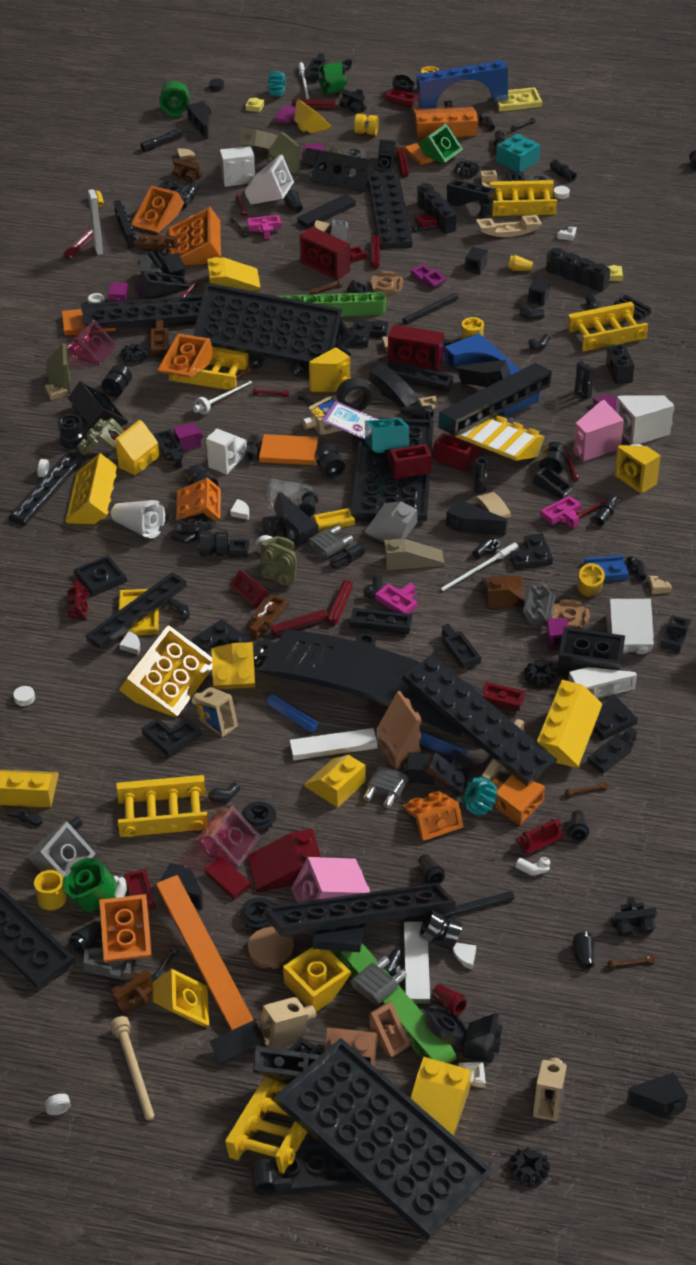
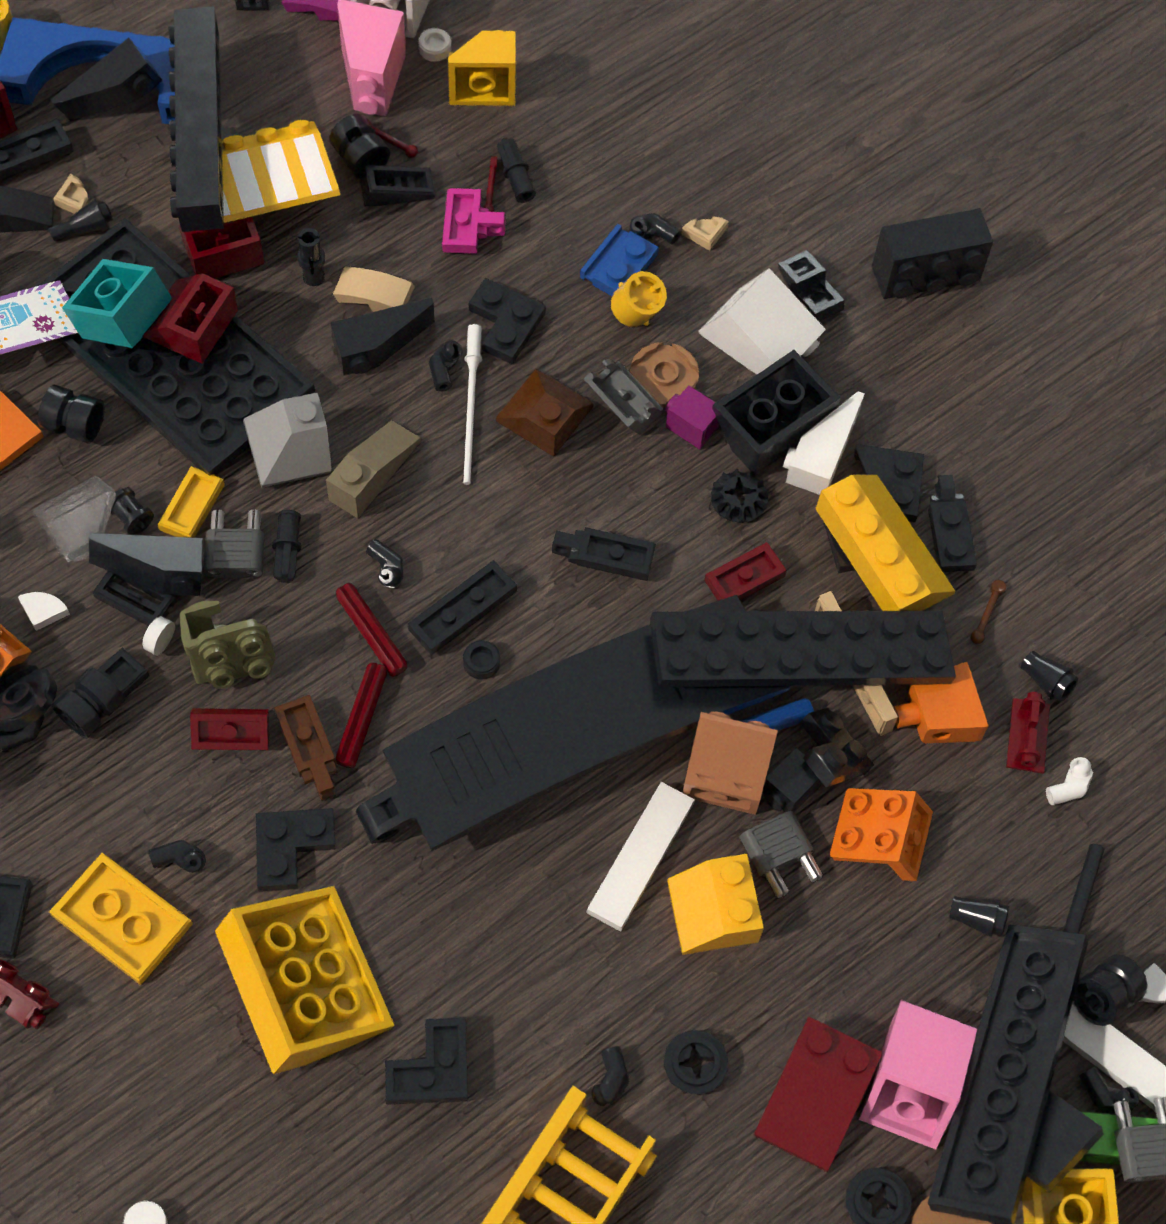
camera: 55 degrees left, 20 degrees up
(130, 643) = (181, 979): white tile -> none
(136, 610) = (132, 926): black plate -> none
(216, 710) = (446, 968): tan torso -> none
(227, 878) = (776, 1194): dark red tile -> none
(228, 836) = (706, 1139): clear pink slope -> none
(233, 666) = (388, 878): yellow slope -> none
(292, 713) = (533, 863): blue axle -> none
(398, 599) = (441, 553): dark pink hinge -> none
(479, 796) = (929, 751): teal gear -> none

